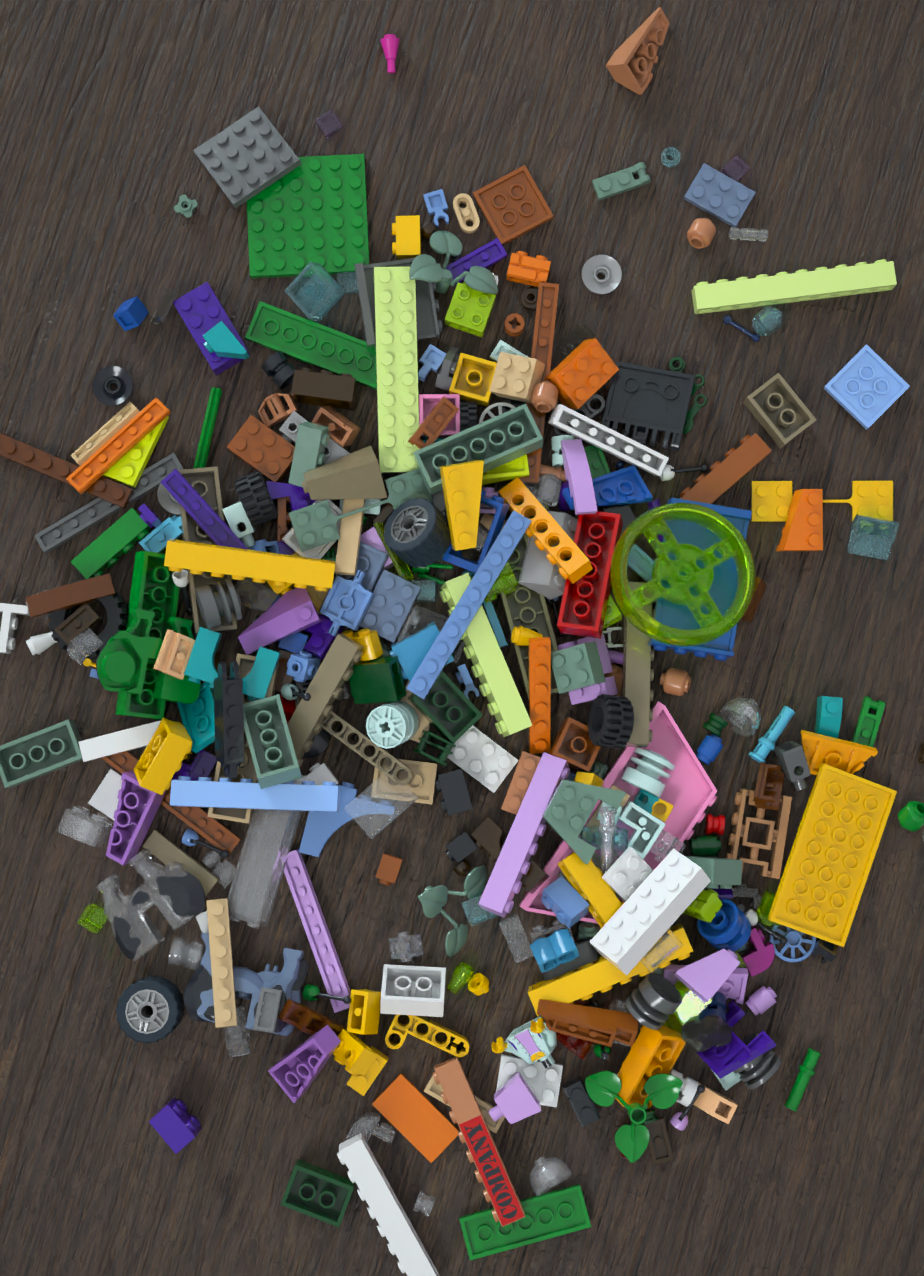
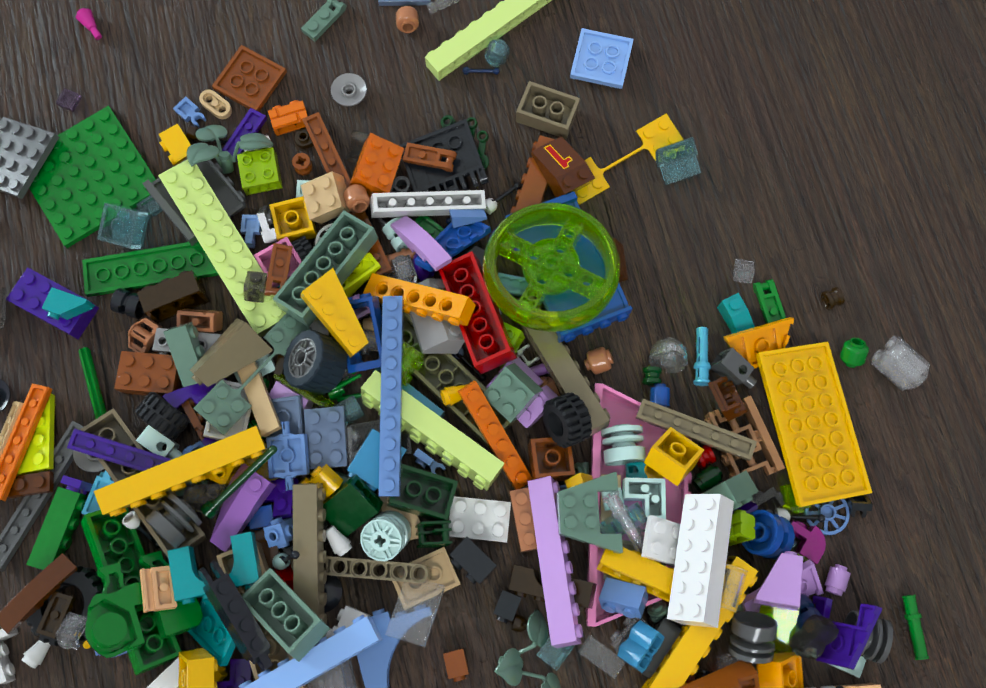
camera: 30 degrees left, 10 degrees down
(256, 609) = (212, 507): none -> dark green piece
(348, 706) = (338, 542): none -> white cone
(404, 428) = (255, 286): none -> clear smoke bracket
(637, 392) = (429, 156): none -> dark orange plate
(637, 474) = (463, 217): none -> medium blue piece
(664, 845) = (675, 497): clear brick -> none
(685, 809) = (673, 456): none -> yellow brick
(721, 798) = (696, 429): none -> dark tan plate
(756, 478) = (562, 167): none -> reddish brown slope
(804, 522) = (620, 180): orange wedge -> none
(864, 678) = (743, 271): none -> clear slope

